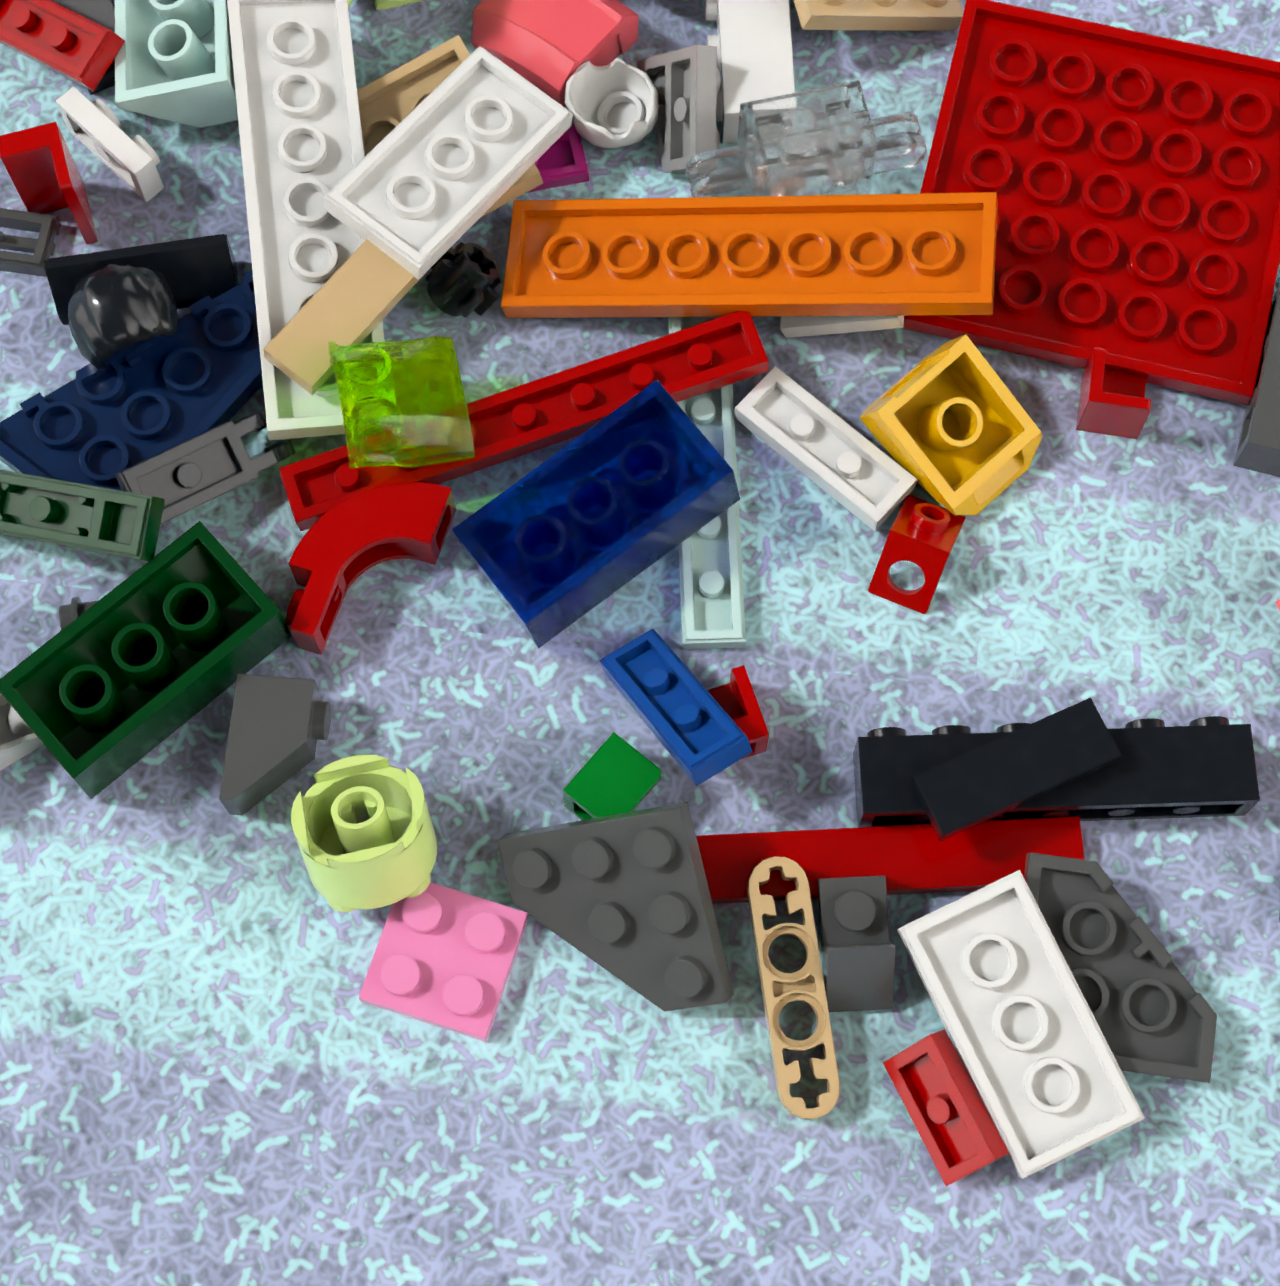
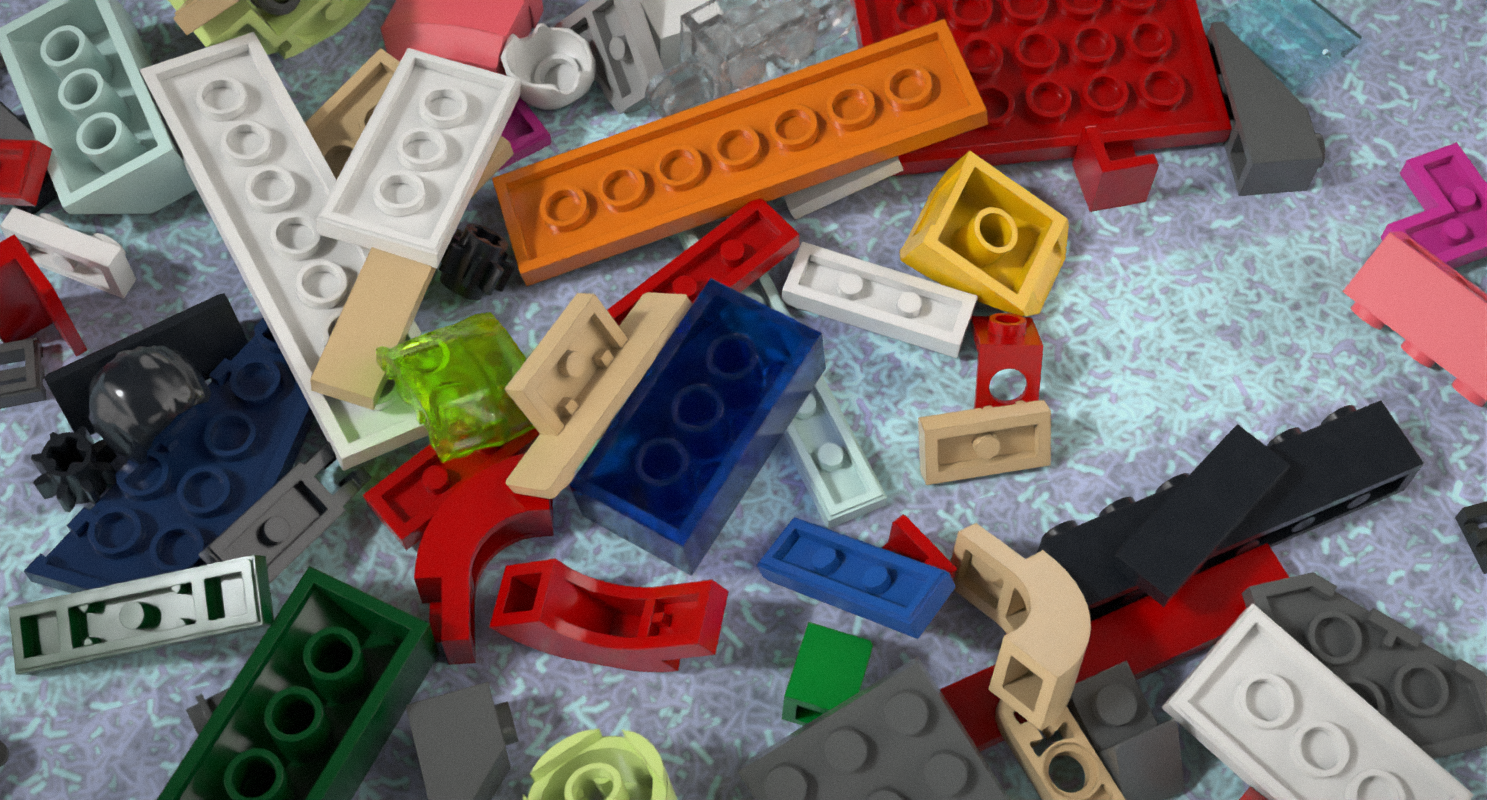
camera: 25 degrees left, 10 degrees down
(43, 353) = (74, 468): none -> black gear
(441, 661) = (607, 622): none -> red arch
(502, 434) = (581, 381): none -> tan bracket
(828, 795) = (1038, 611): none -> tan arch
(858, 622) = (984, 441): none -> tan plate

